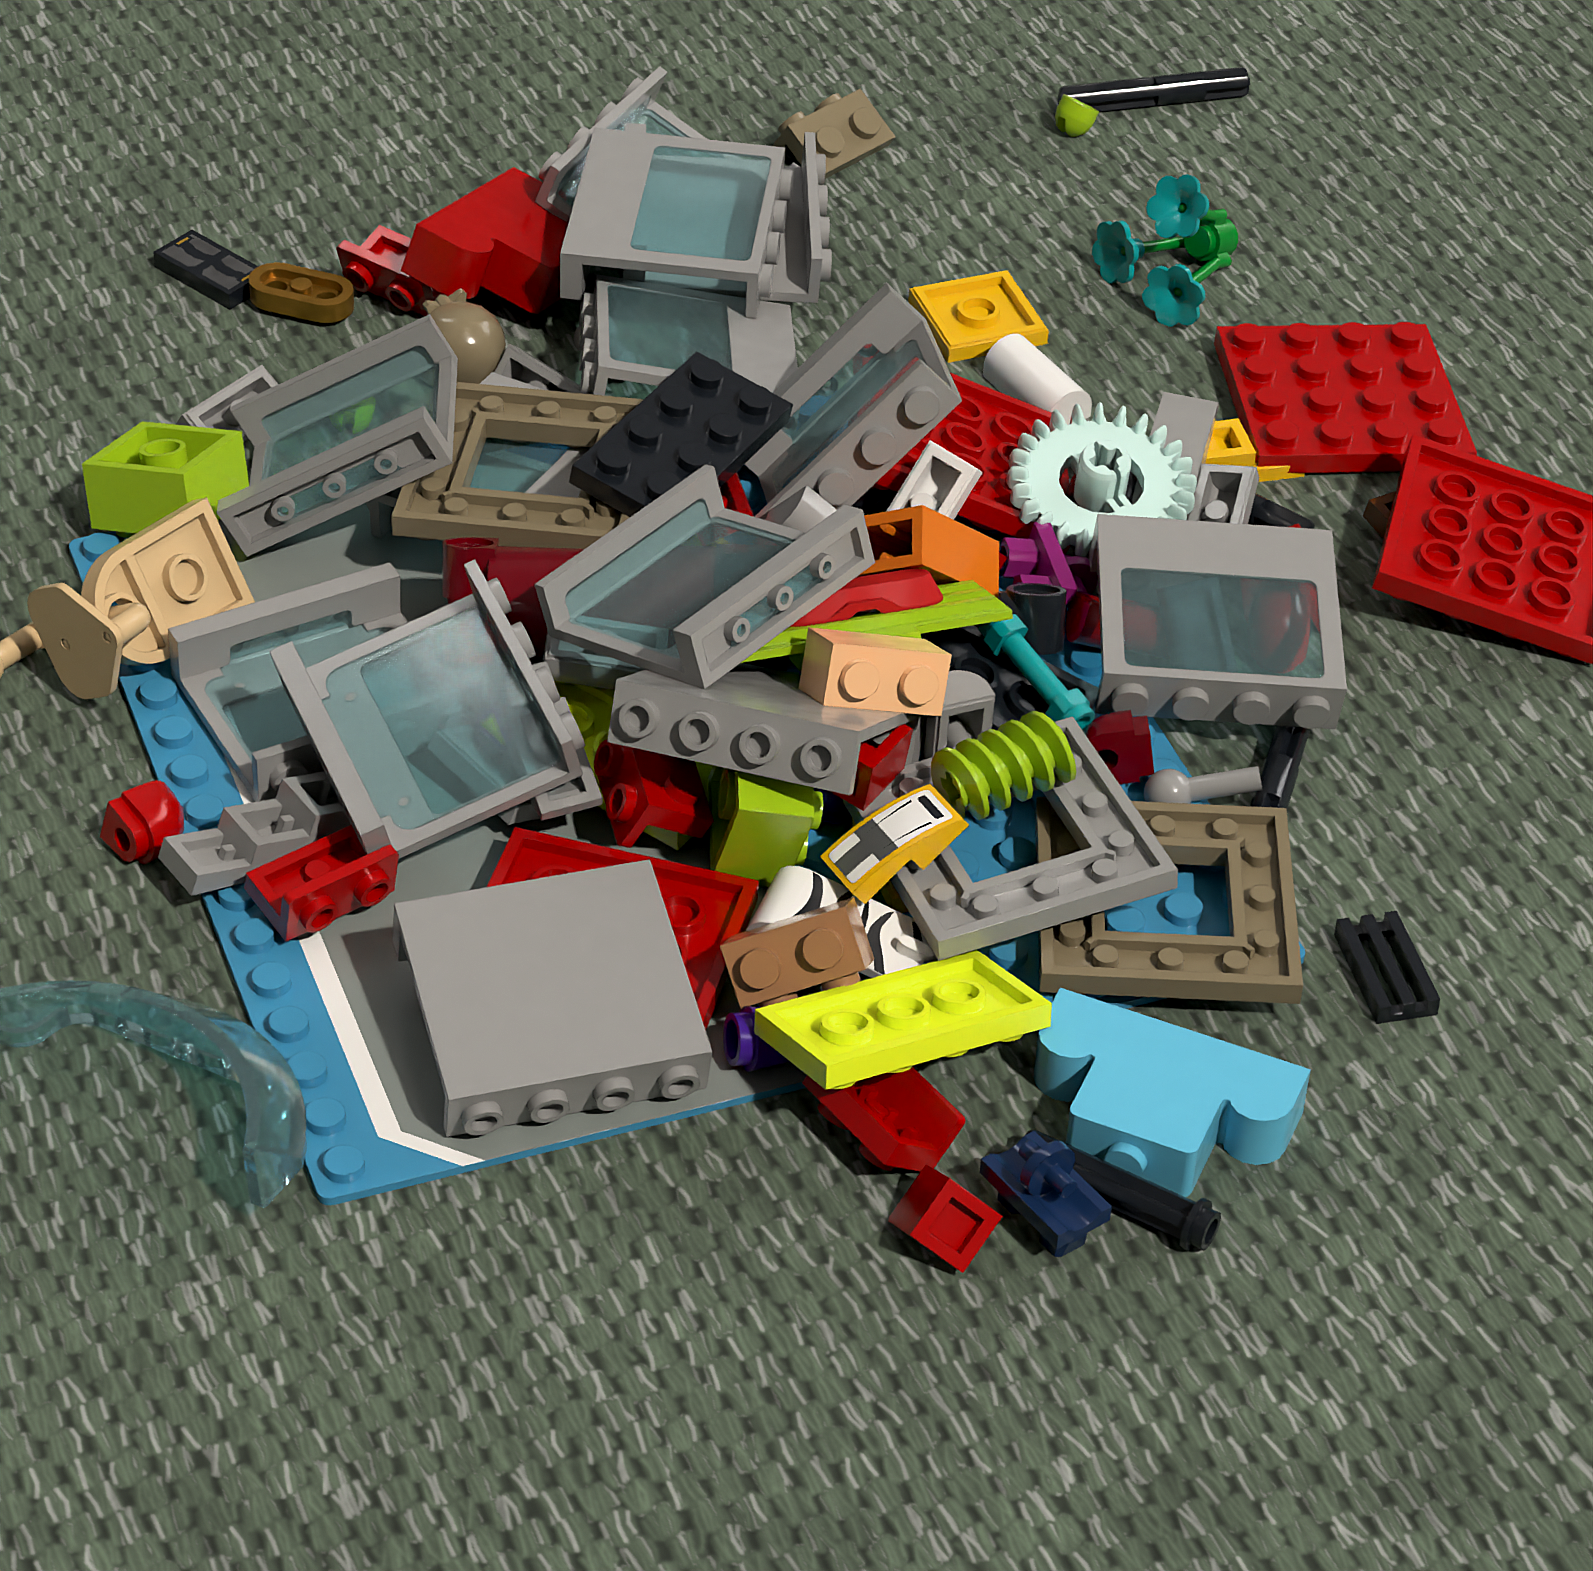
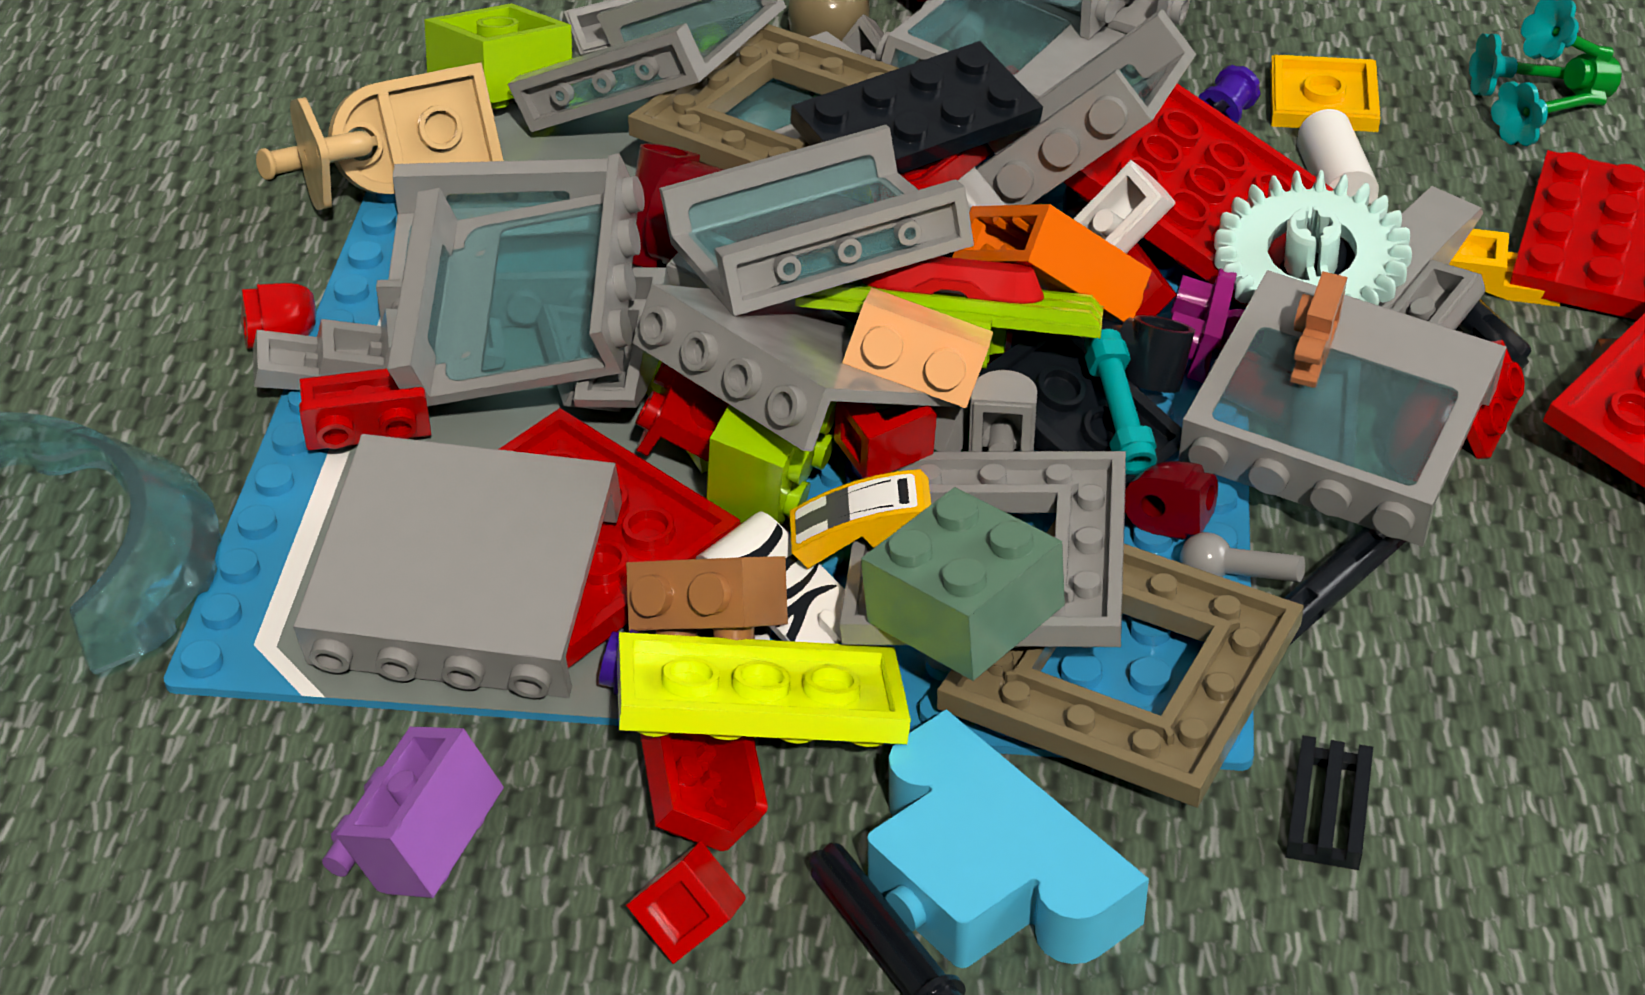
camera: 30 degrees right, 0 degrees up
(671, 1221) = (416, 813): none -> medium lavender brick
(1002, 763) = (1009, 472): lime piece -> none
(1039, 870) = (963, 582): none -> sand green brick
(1047, 1191) = (798, 913): dark blue hips -> none
(1181, 550) = (1318, 321): none -> nougat plate

